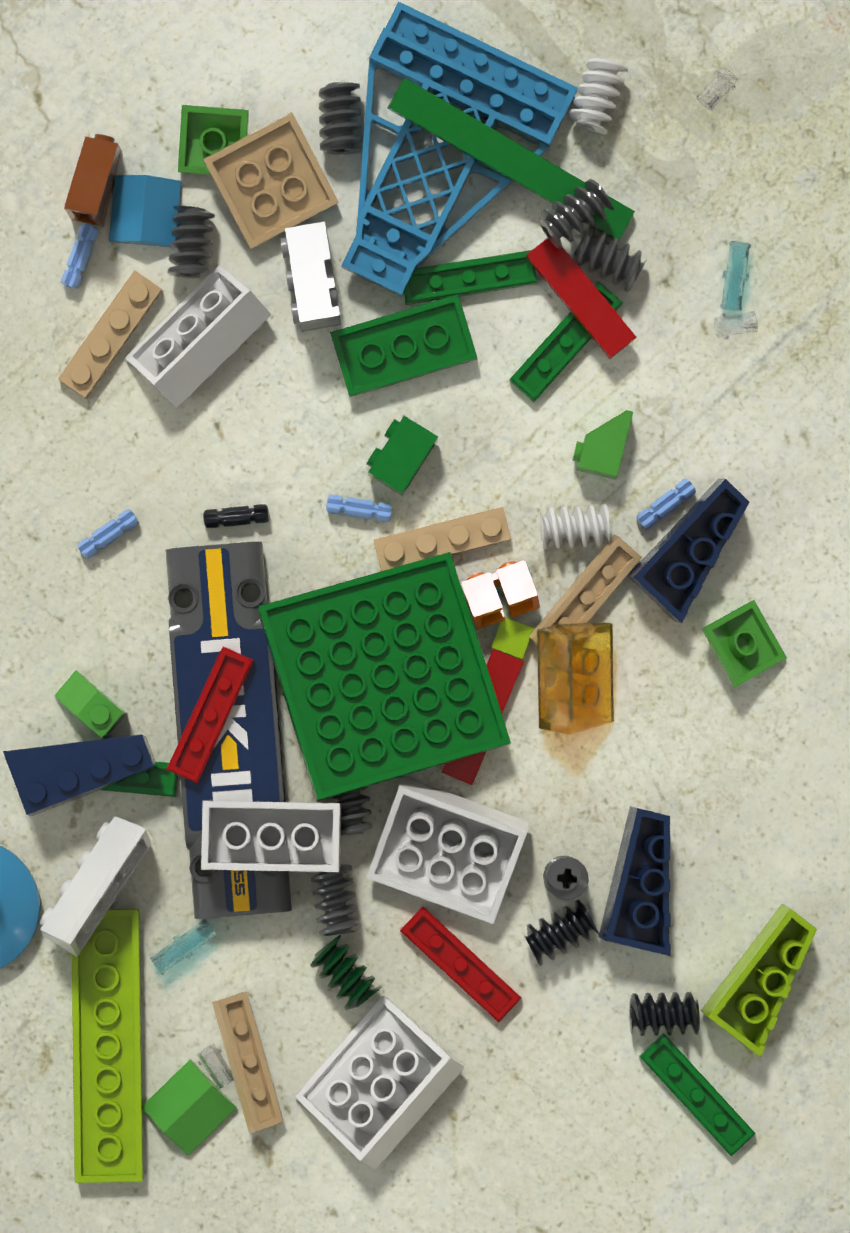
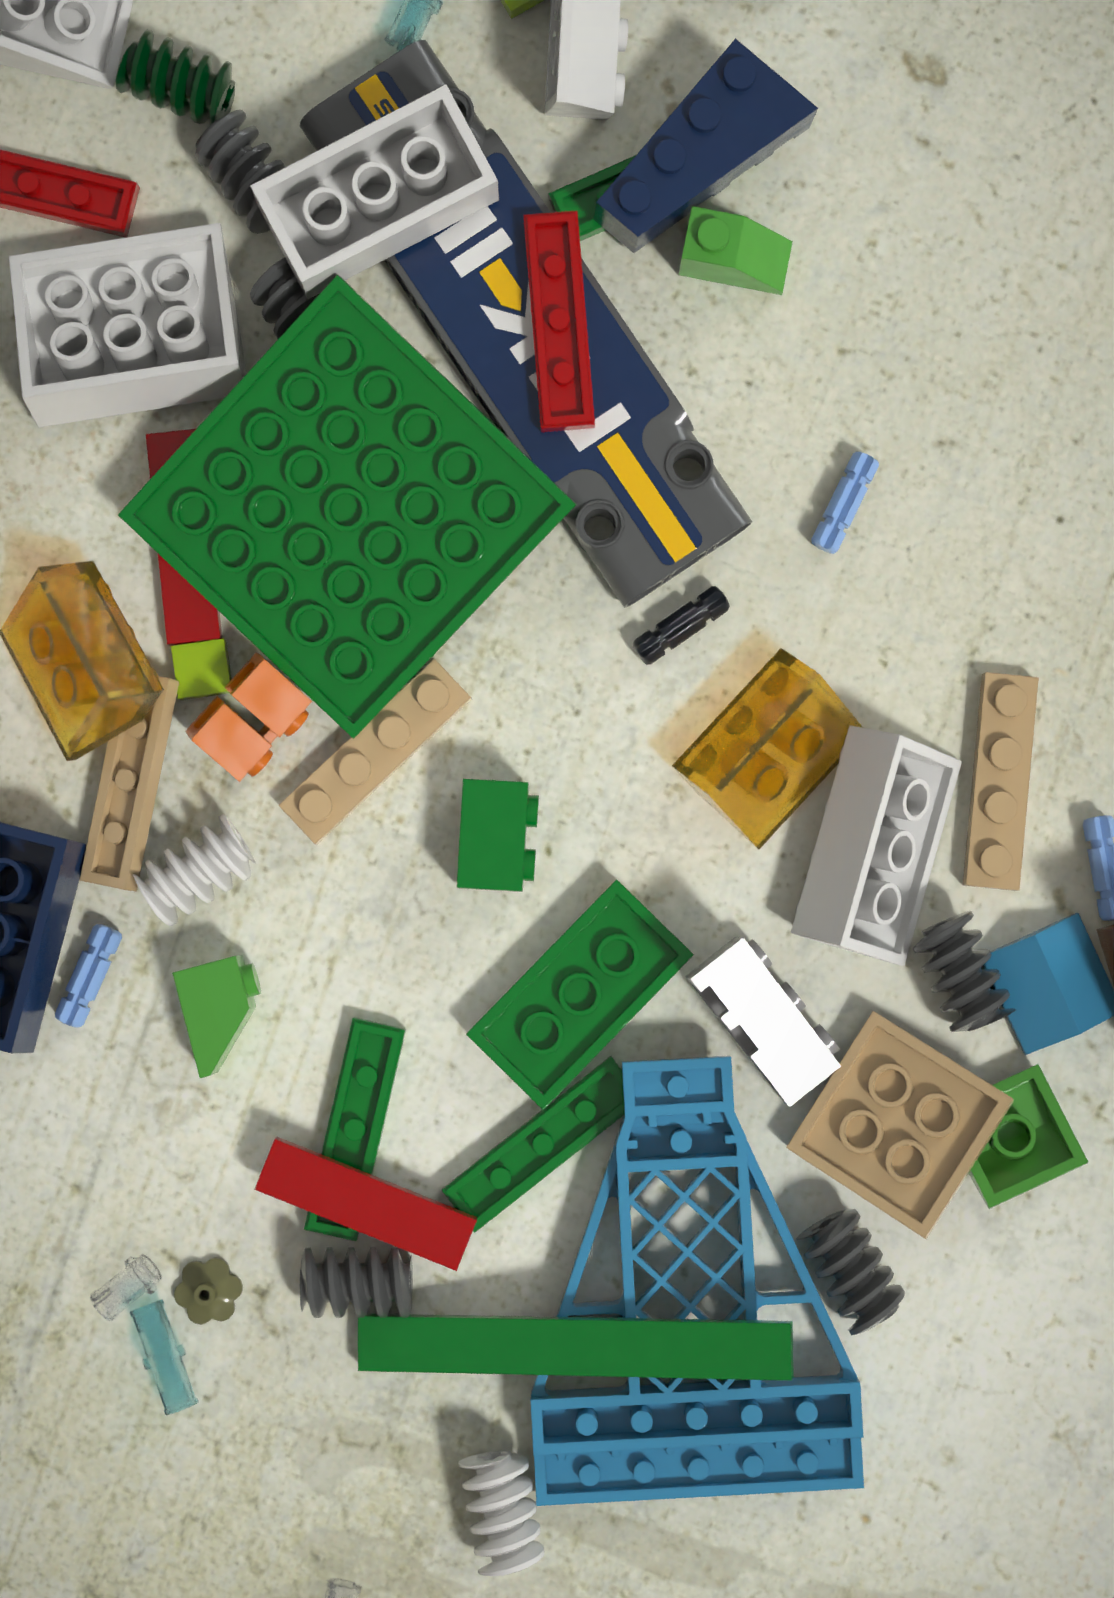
camera: 155 degrees right, 0 degrees up
(226, 421) = (768, 747): none -> clear yellow slope
(359, 508) = (515, 731): light blue axle -> none
(574, 212) = (438, 1320): dark grey piece -> none
(687, 305) = (216, 1279): none -> olive plant

